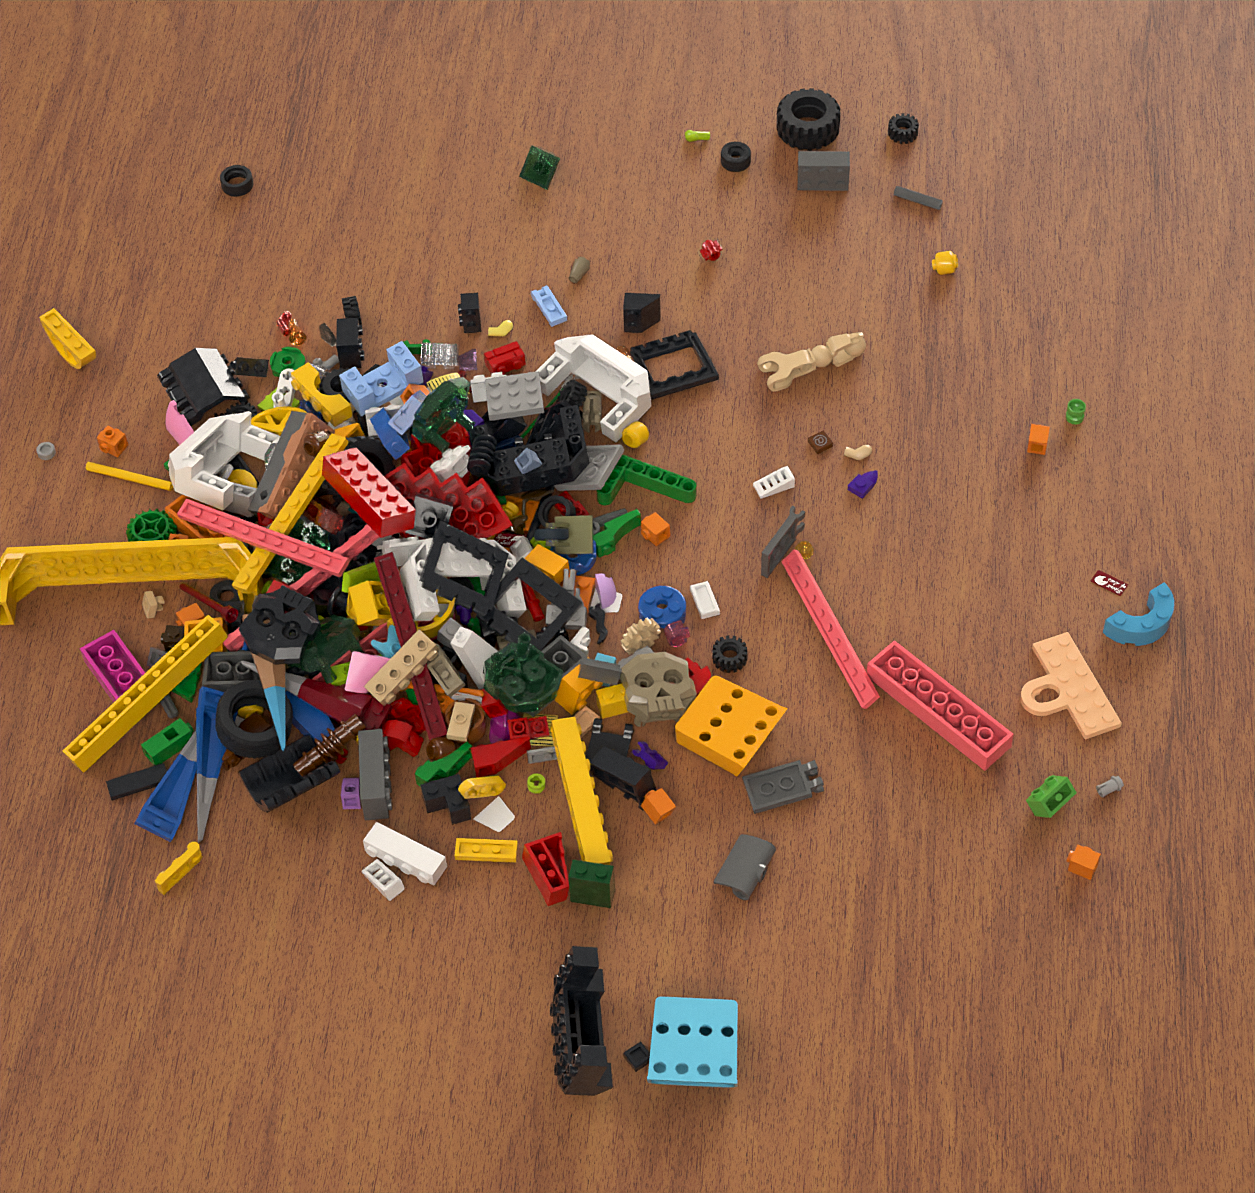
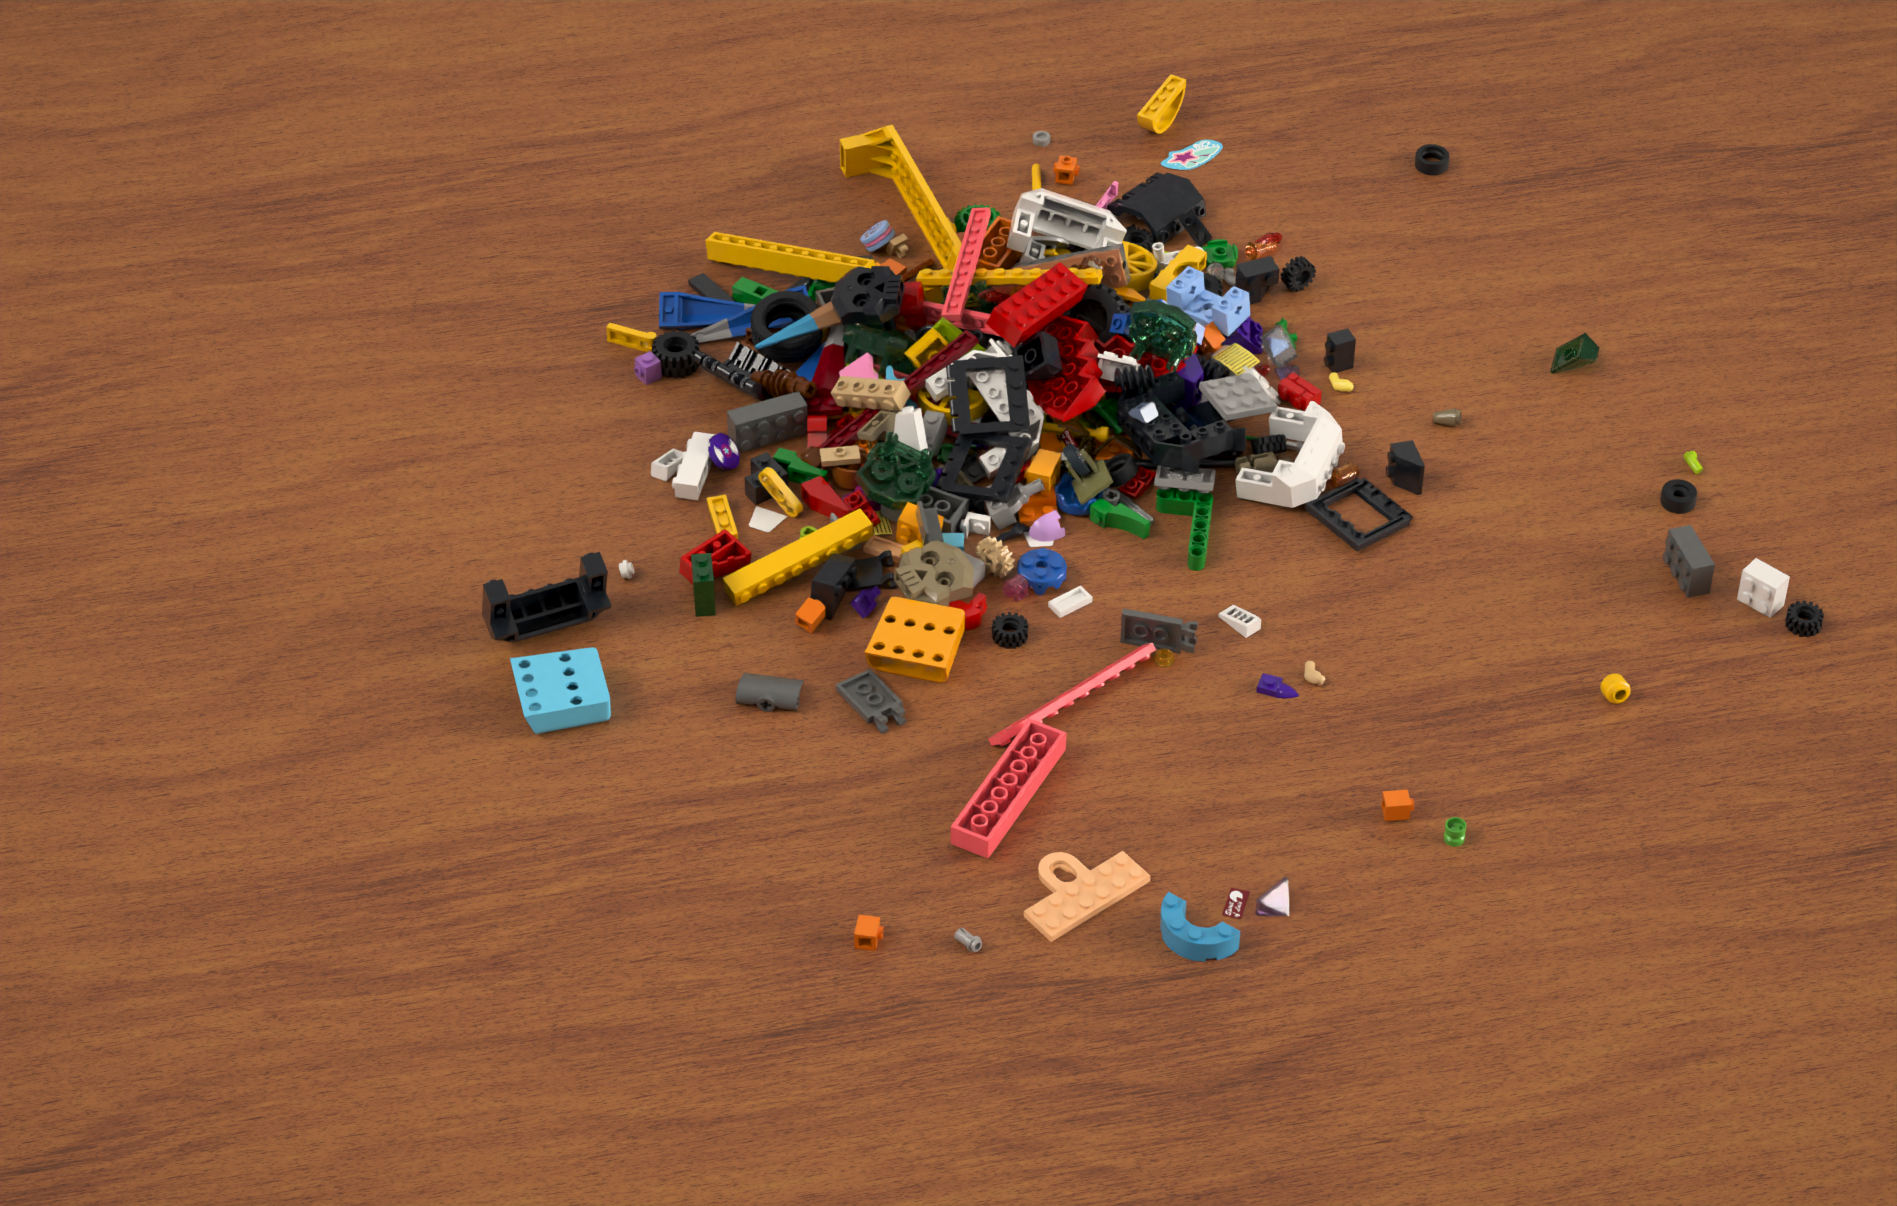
camera: 70 degrees right, 10 degrees down
(112, 664) = (822, 233): dark pink brick -> none
(132, 344) = (1193, 155): none -> sticker
(134, 615) = (877, 236): none -> light blue head
(223, 819) = (676, 353): none -> black tyre
(235, 863) = (648, 368): none -> medium lavender brick
(398, 822) = (723, 451): none -> dark purple tile
(529, 951) = (626, 569): none -> white plate
(549, 306) = (1388, 408): light blue plate -> none
(635, 434) = (1249, 504): yellow head -> none
(655, 529) = (1137, 545): orange brick -> none
(711, 250) = (1527, 504): red gear -> none
(809, 104) = (1766, 519): black tyre -> none
(820, 442) = (1312, 643): reddish brown tile -> none
(838, 350) = (1436, 624): tan piece -> none
(870, 137) = (1763, 587): none -> white brick
(918, 197) = (1705, 652): dark grey axle -> none
(1051, 796) = (927, 889): bright green brick -> none
(1118, 552) = (1274, 901): none -> slope

